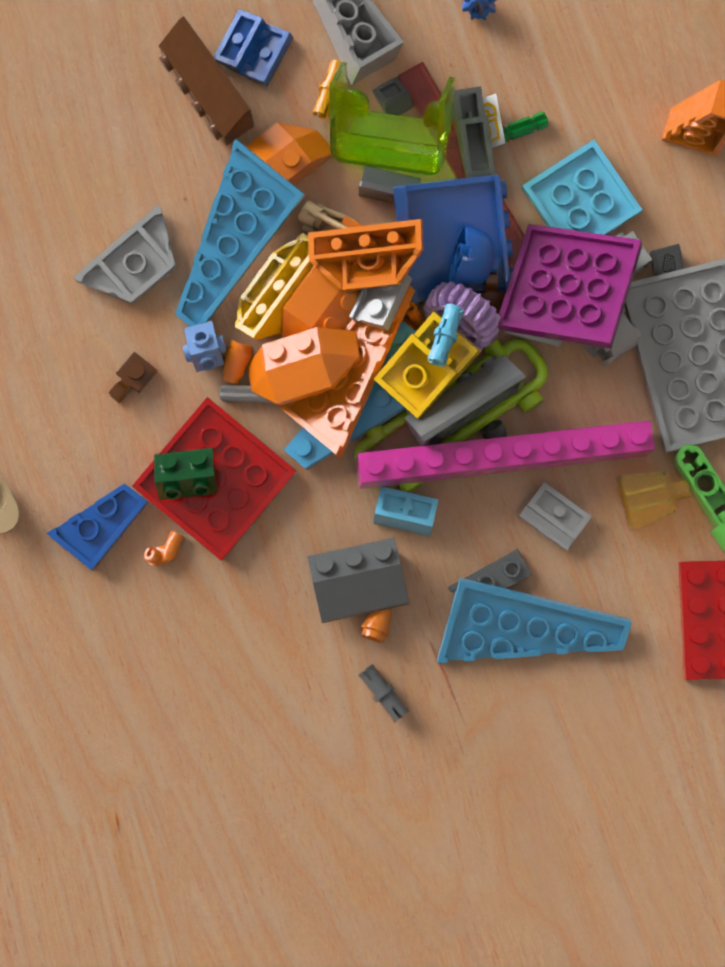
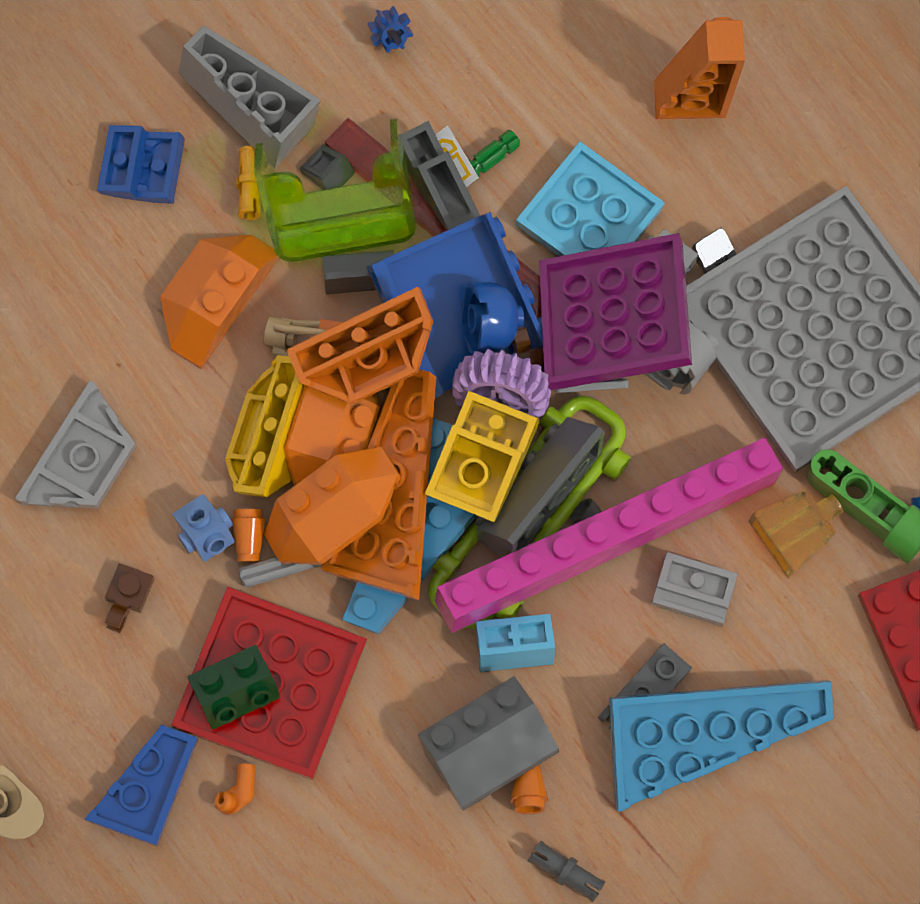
camera: 30 degrees left, 10 degrees down
(205, 82) = (100, 220): reddish brown slope -> none
(241, 223) = (200, 367): dark azure wing -> none
(379, 305) = (400, 406): light grey plate -> none
(415, 317) = (445, 409): orange arm -> none
(445, 335) = (494, 412): medium azure pin -> none

